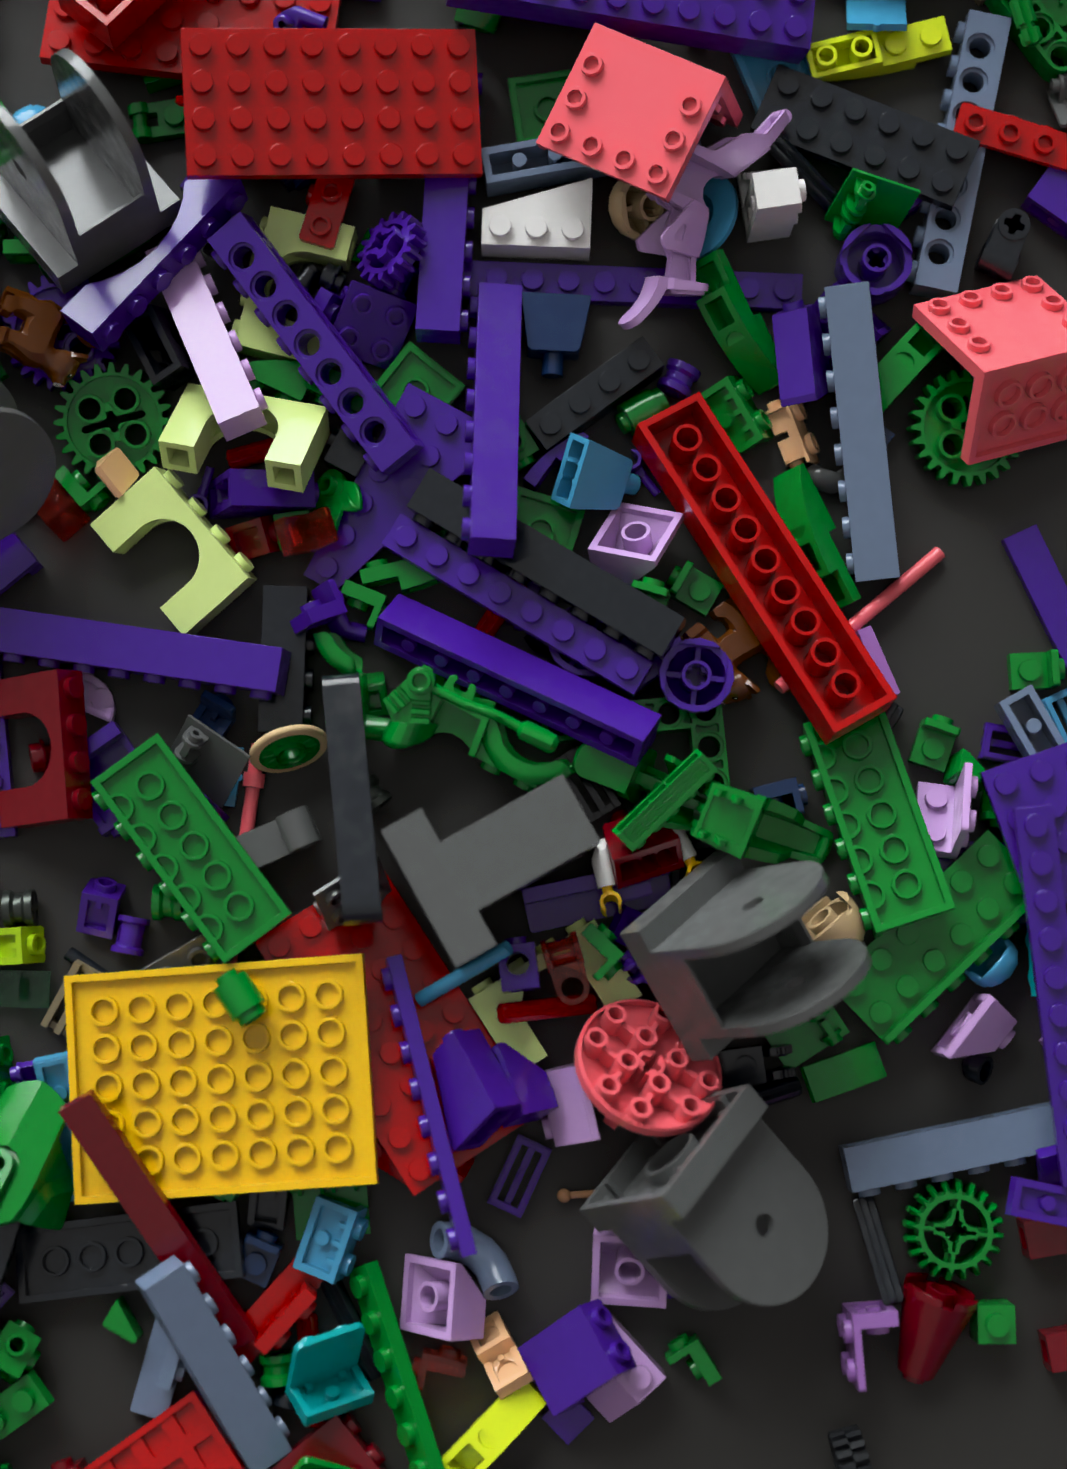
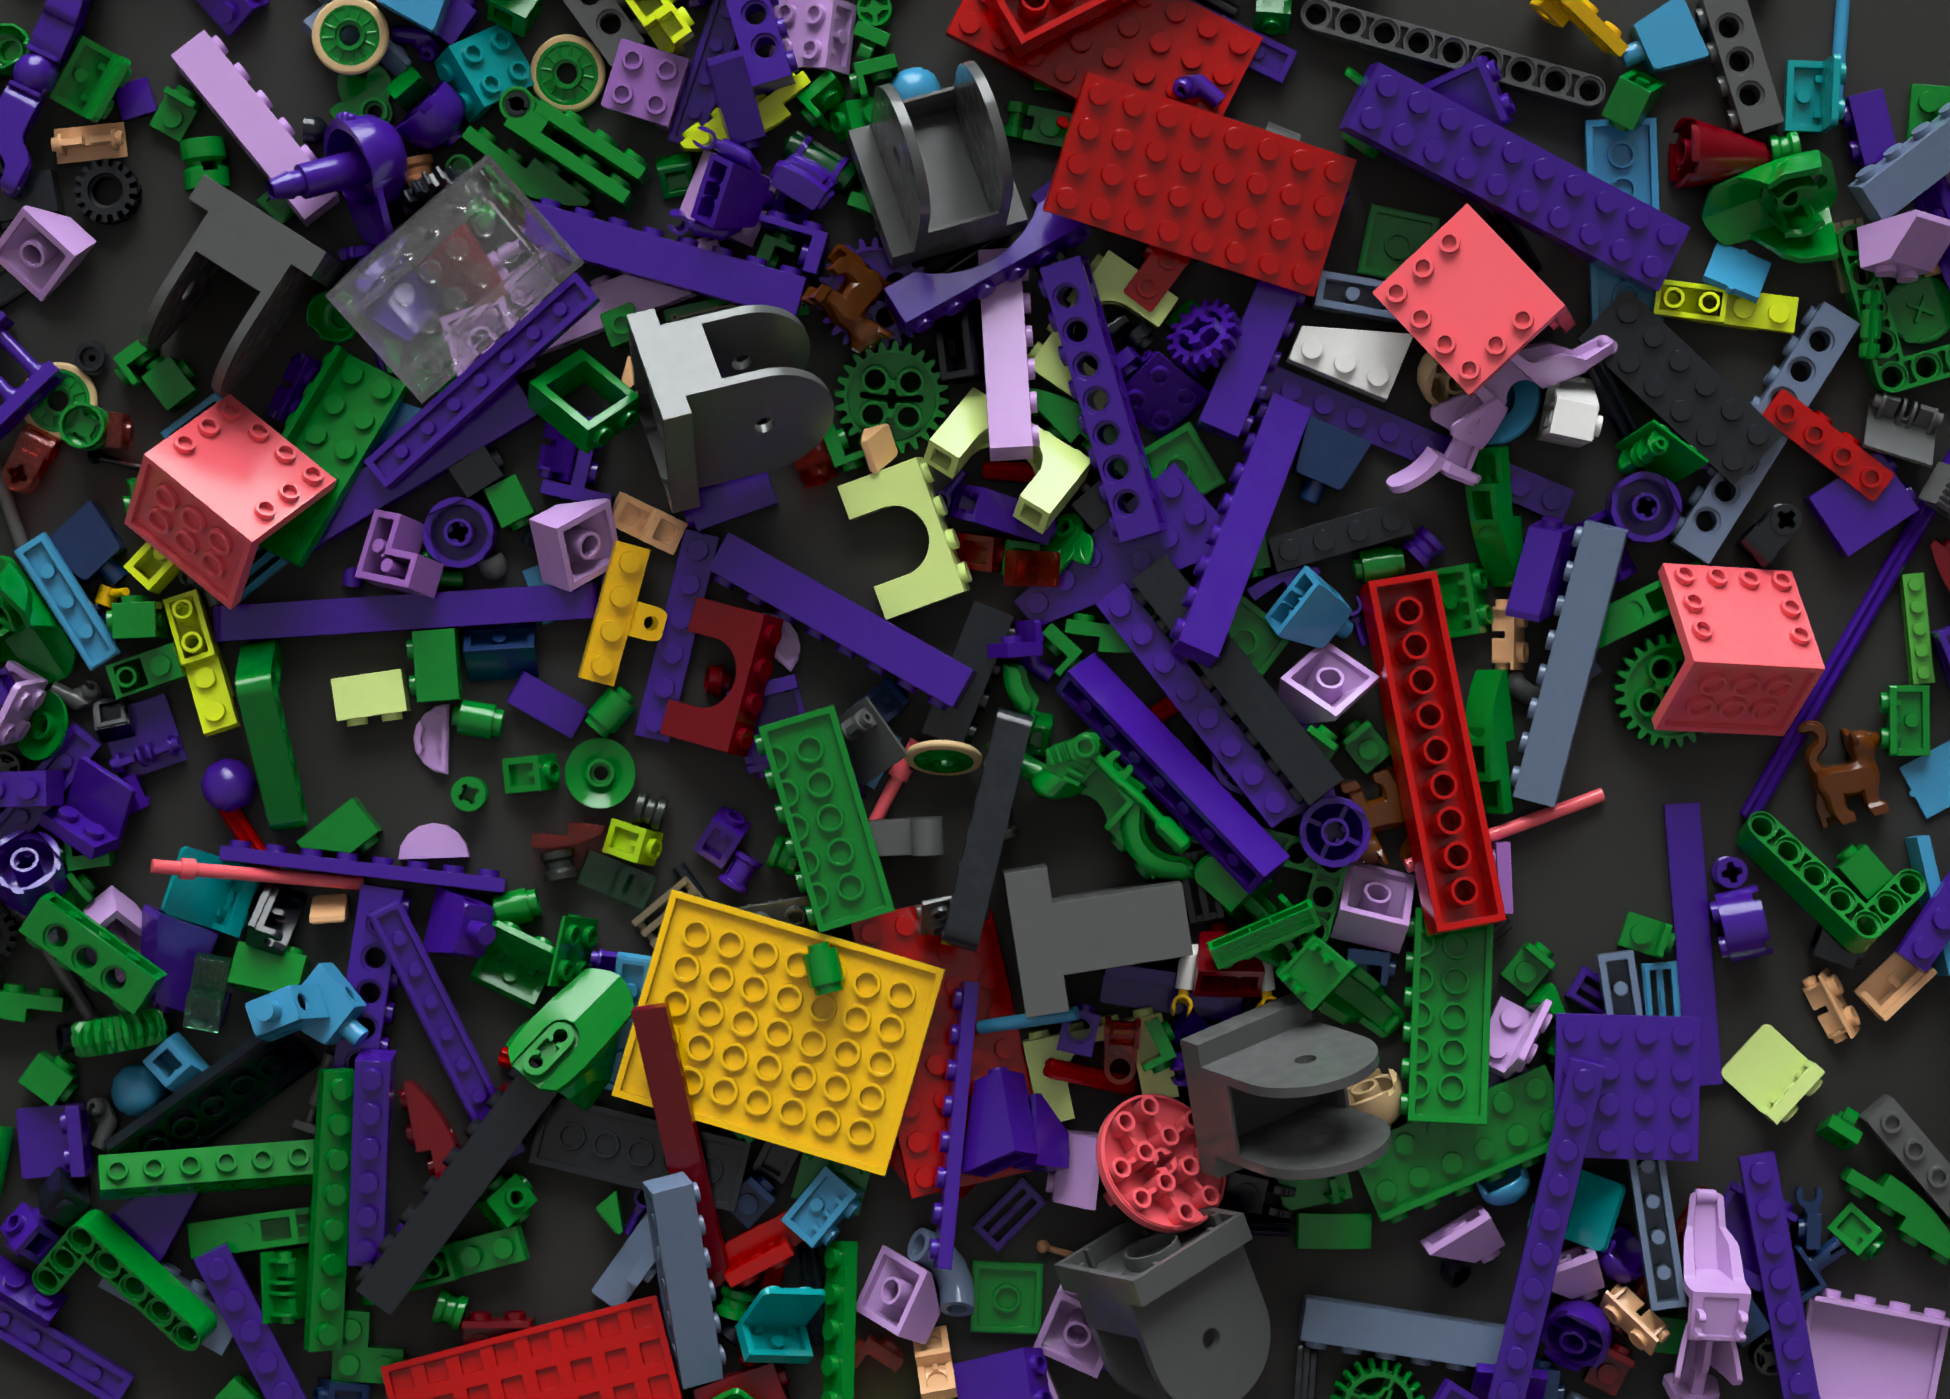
camera: 25 degrees right, 5 degrees up
(148, 1318) = (636, 1213): none -> dark purple hand
(547, 1260) = (1007, 1297): none -> green tile
(763, 740) = (1374, 907): none -> lavender slope

